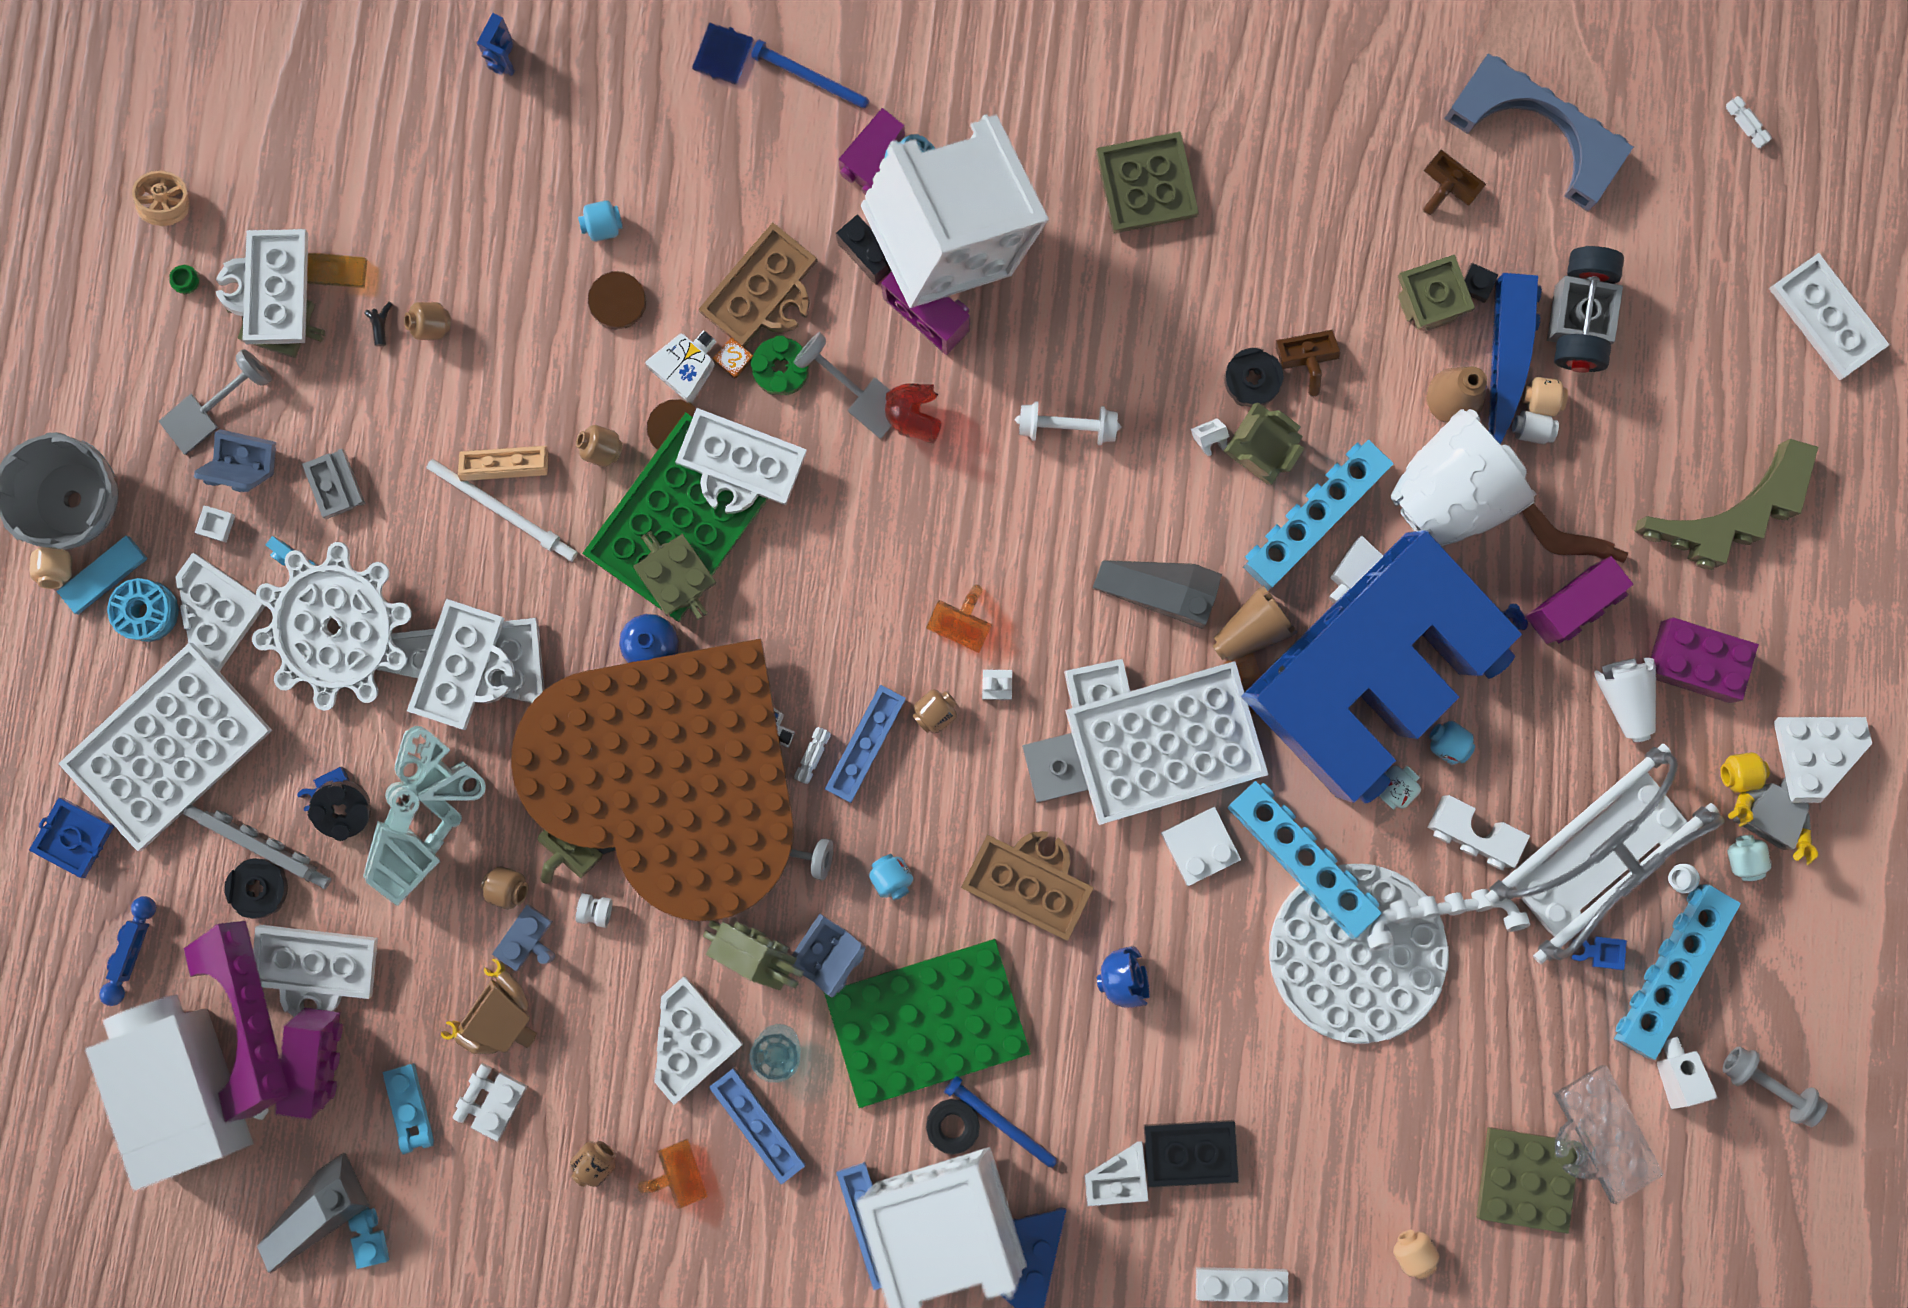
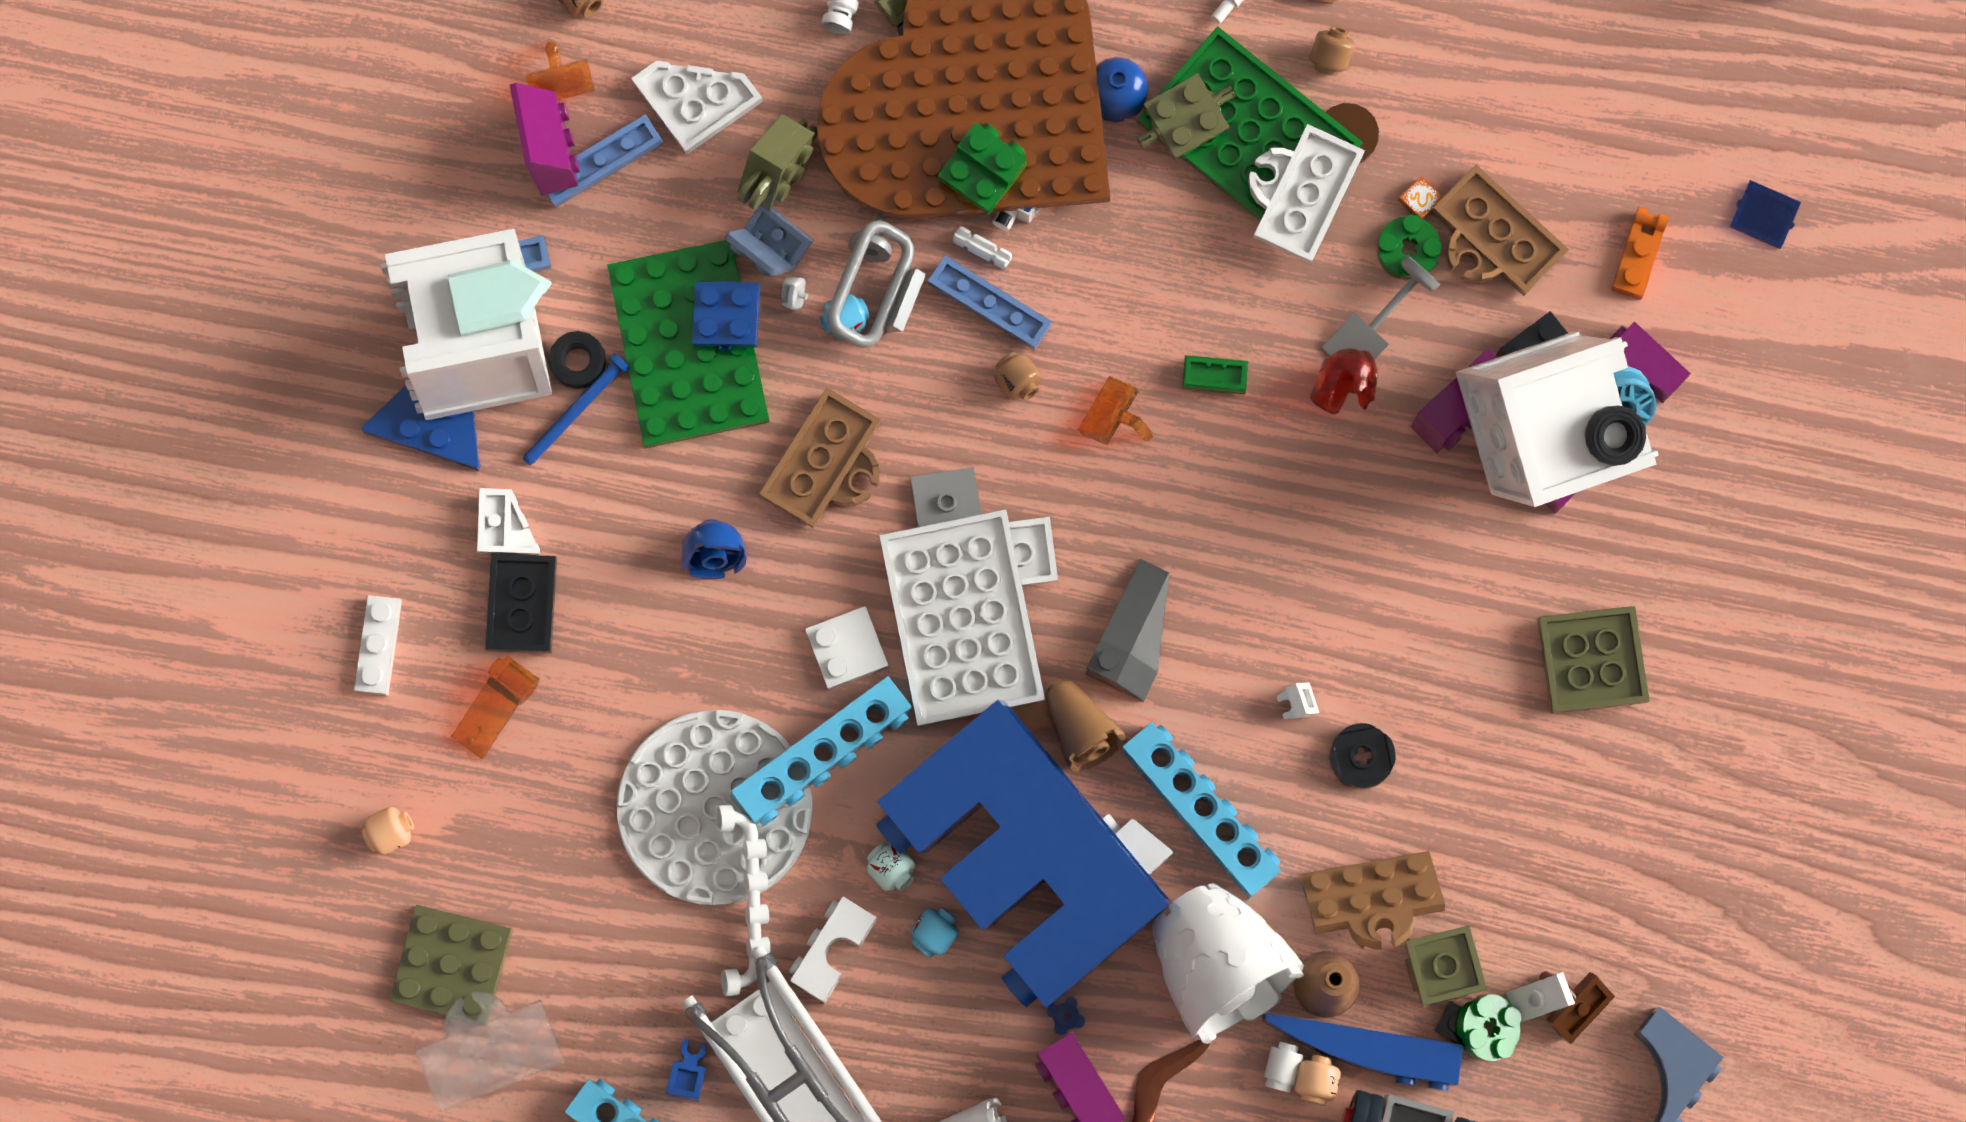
camera: 95 degrees right, 5 degrees down
(600, 221) = (1579, 70): medium azure head -> none
(617, 300) = (1492, 83): reddish brown tile -> none
(684, 364) = (1415, 146): white torso -> none
(743, 758) = (983, 167): none -> green plate
(744, 1182) = (545, 138): none -> magenta slope
(761, 51) = (1764, 253): blue bar -> none
(769, 161) = (1639, 254): none -> orange plate
(776, 1053) = (672, 182): clear light blue piece -> none
(869, 827) = (898, 297): none -> light grey bar
(871, 928) = (793, 293): none -> white piece
(901, 988) = (726, 314): none -> blue plate
(916, 532) = (1215, 374): none -> green plate
(928, 1213) = (495, 295): none -> light aqua tile
(969, 163) = (1635, 435): none -> black tyre
(997, 685) = (1041, 447): white tile -> none
(1106, 425) = (1328, 505): white piece -> none
(1266, 443) = (1285, 758): olive panel -> none
(1288, 1166) = (494, 705): none -> clear orange door
(1308, 351) = (1387, 817): reddish brown plate -> none
(1381, 358) = (1374, 897): none -> medium nougat plate
(1453, 210) = (1541, 997): none -> white plate
(1481, 239) = (1506, 1025): none -> plate

